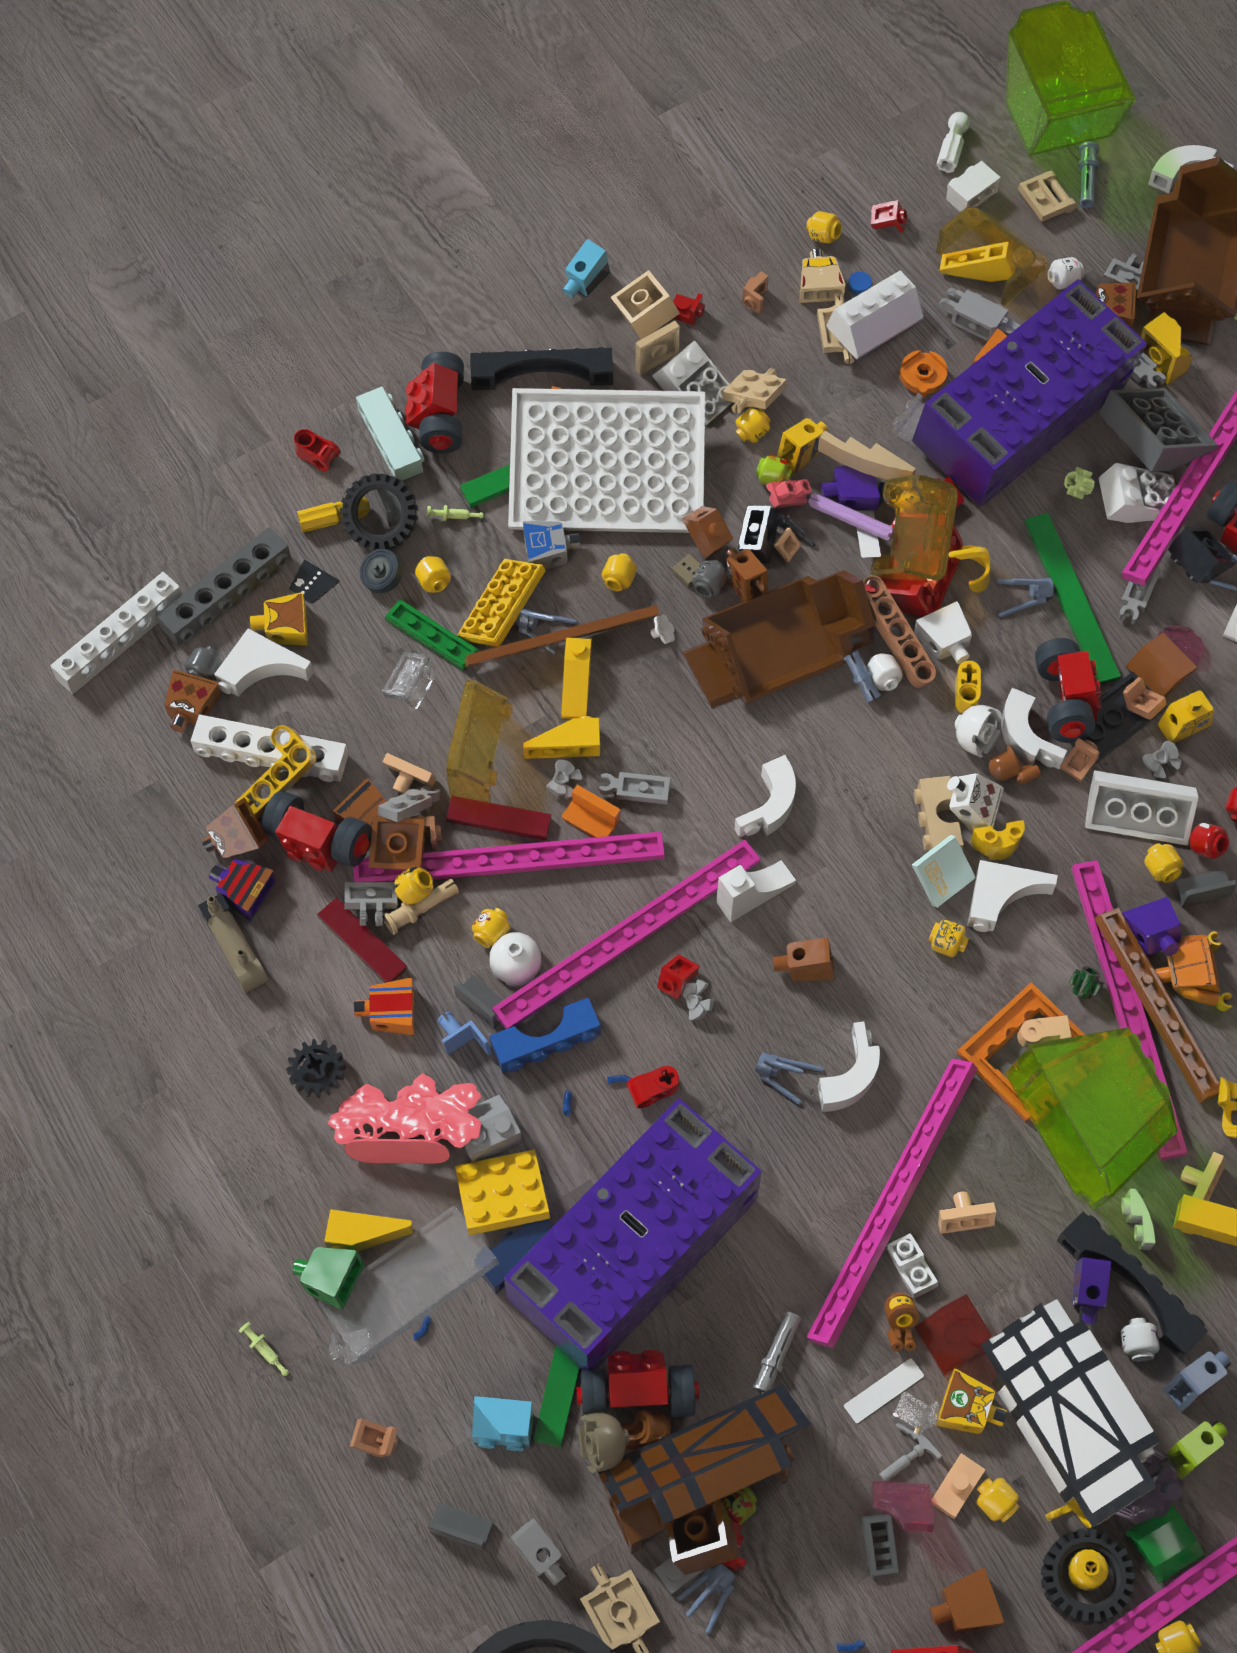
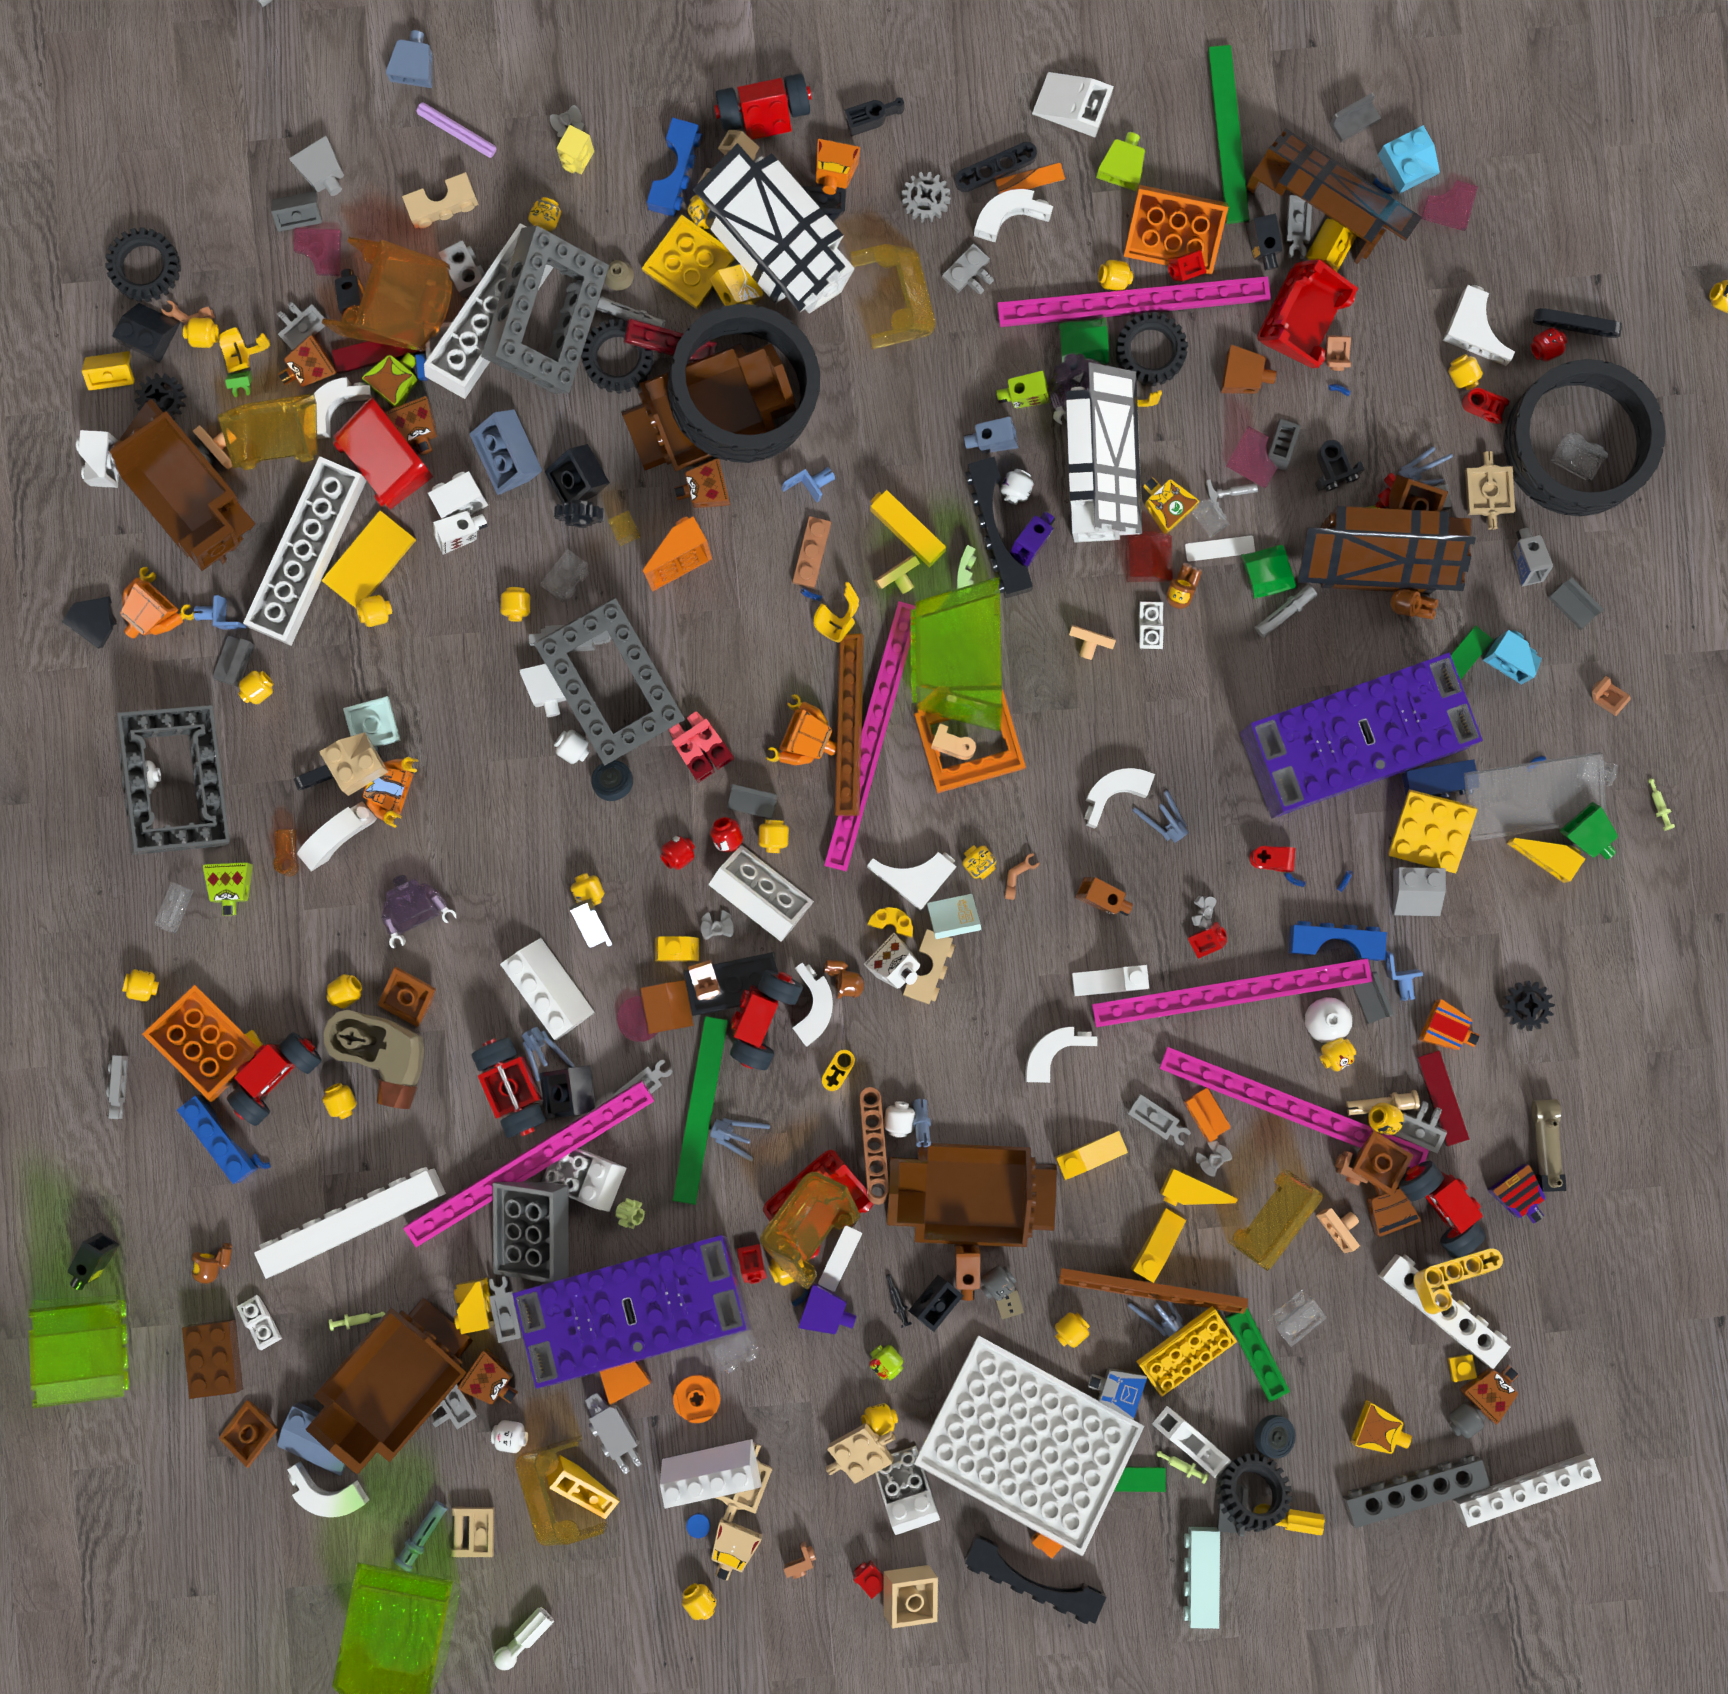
camera: 155 degrees left, 20 degrees up
(228, 709) = (1462, 1367): none -> yellow plate
(235, 831) = (1508, 1241): torso -> none
(257, 659) = (1421, 1404): white arch -> none
(312, 581) = (1335, 1461): black sticker -> none
(319, 451) = (1274, 1591): red piece -> none
(408, 803) = (1356, 1194): light grey plate -> none
(413, 1113) = (1471, 927): coral plant -> none
(433, 574) = (1231, 1410): yellow head -> none
(434, 402) = (1152, 1587): brick -> none
(459, 535) = (1191, 1442): none -> white arch
(498, 818) = (1282, 1150): dark red tile -> none
(586, 270) = (936, 1665): medium azure torso -> none
(602, 1441) = (1450, 603): dark tan cylinder -> none
(639, 1382) = (1403, 634): brick -> none
(657, 348) = (924, 1541): tan tile -> none
(663, 629) = (1061, 1255): white plant -> none
(685, 725) = (1090, 1155): none -> yellow slope
(707, 531) = (979, 1323): dark orange torso -> none
(787, 545) = (913, 1284): light nougat slope -> none
(789, 493) = (887, 1332): coral hips -> none
(801, 443) = (856, 1375): yellow torso -> none
(806, 1543) = (1337, 468): none -> black pin
(821, 1386) = (1268, 571): none -> green slope
(851, 516) = (845, 1281): lavender axle -> none
(871, 461) = (801, 1317): tan slope -> none
(889, 215) = (632, 1584): red bracket -> none
(891, 1204) = (1138, 678): dark pink plate -> none
(901, 929) = (1012, 876): none -> nougat arm
(945, 633) = (827, 1128): white torso -> none
(957, 1486) = (1205, 455): light nougat tile -> none
(973, 187) = (537, 1575): white brick -> none
(977, 729) = (854, 1026): white cylinder -> none
(979, 555) = (757, 1175): yellow helmet -> none
(997, 1499) = (1185, 429): yellow head -> none
(1080, 759) = (785, 957): nougat bracket -> none
(1086, 982) = (894, 769): dark green gear -> none
(1086, 1579) = (1150, 358): yellow head -> none
(1155, 926) = (815, 784): dark purple torso -> none

